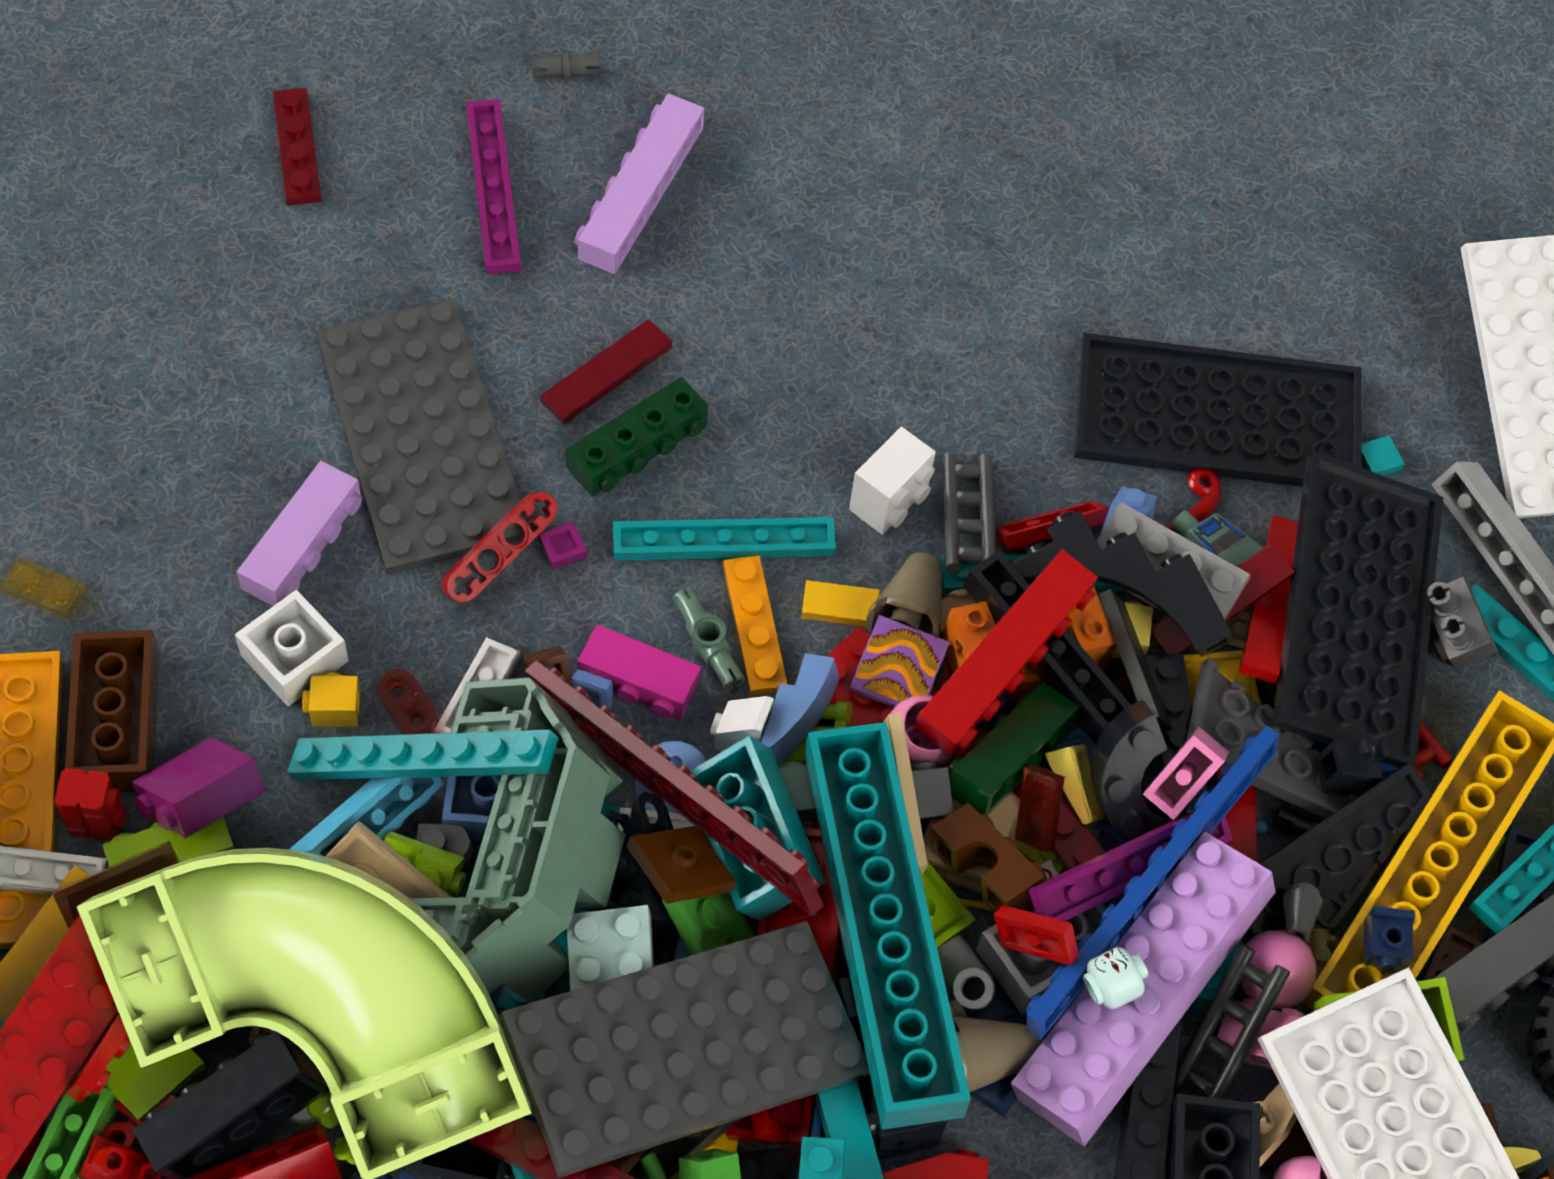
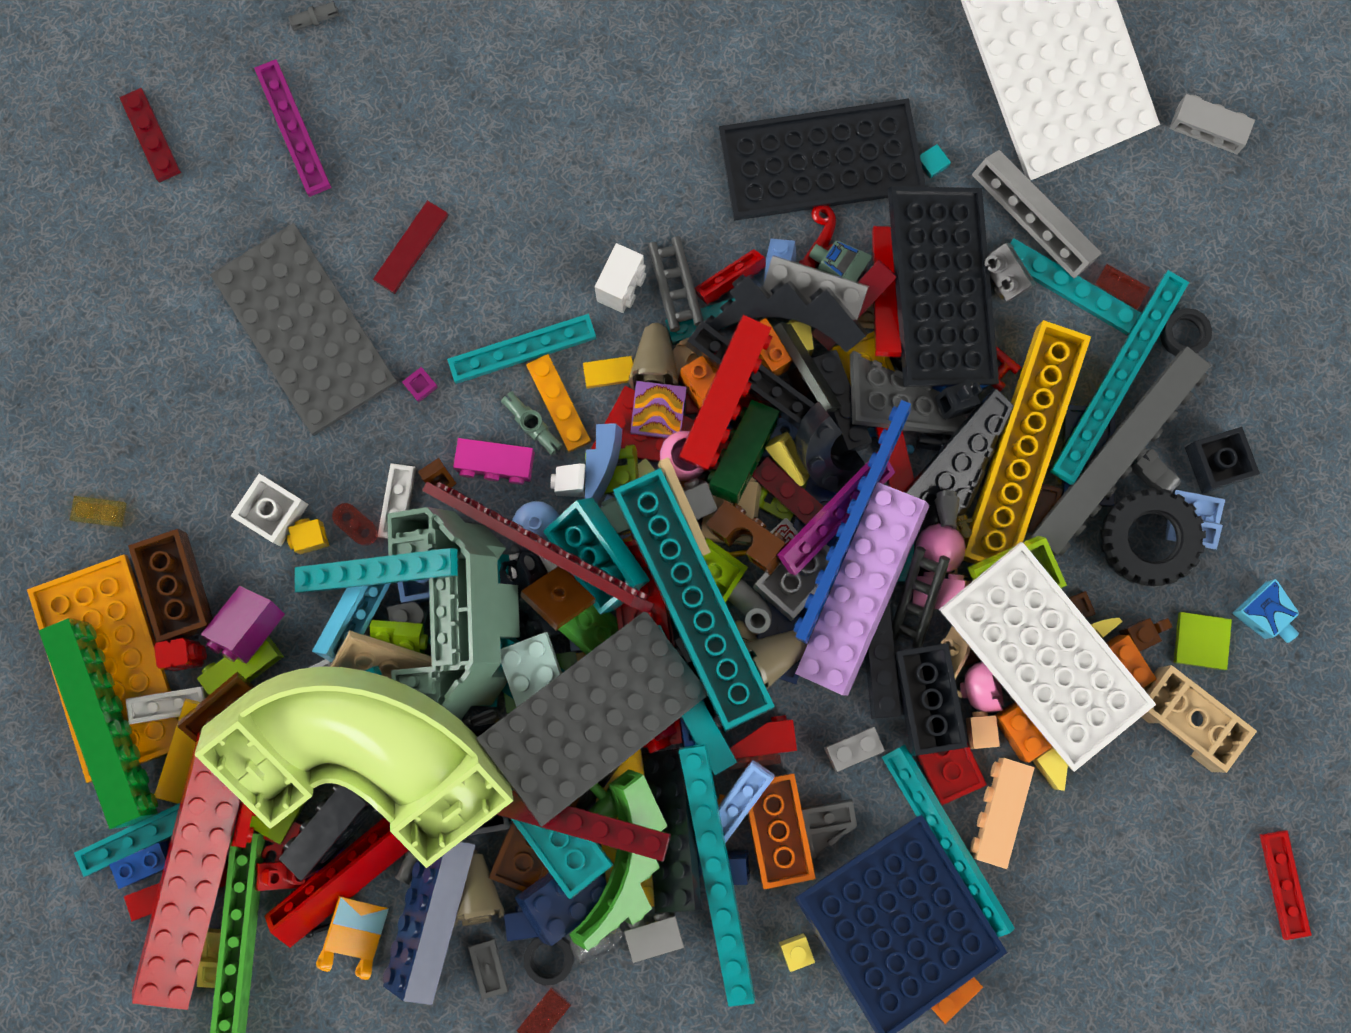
camera: 10 degrees left, 20 degrees up
(300, 534) = (248, 427): lavender brick -> none
(499, 546) = (375, 397): red beam -> none
(596, 686) = (473, 480): medium blue tile -> none
(637, 437) = (445, 291): dark green brick -> none
(640, 183) = (391, 96): lavender brick -> none
(1036, 935) = (794, 584): red plate -> none
(1039, 807) = (770, 486): clear red plate -> none
(1115, 978) = (844, 599): light aqua head -> none
(1186, 773) = (857, 441): bright pink brick -> none
(1385, 924) = (997, 508): dark blue brick -> none

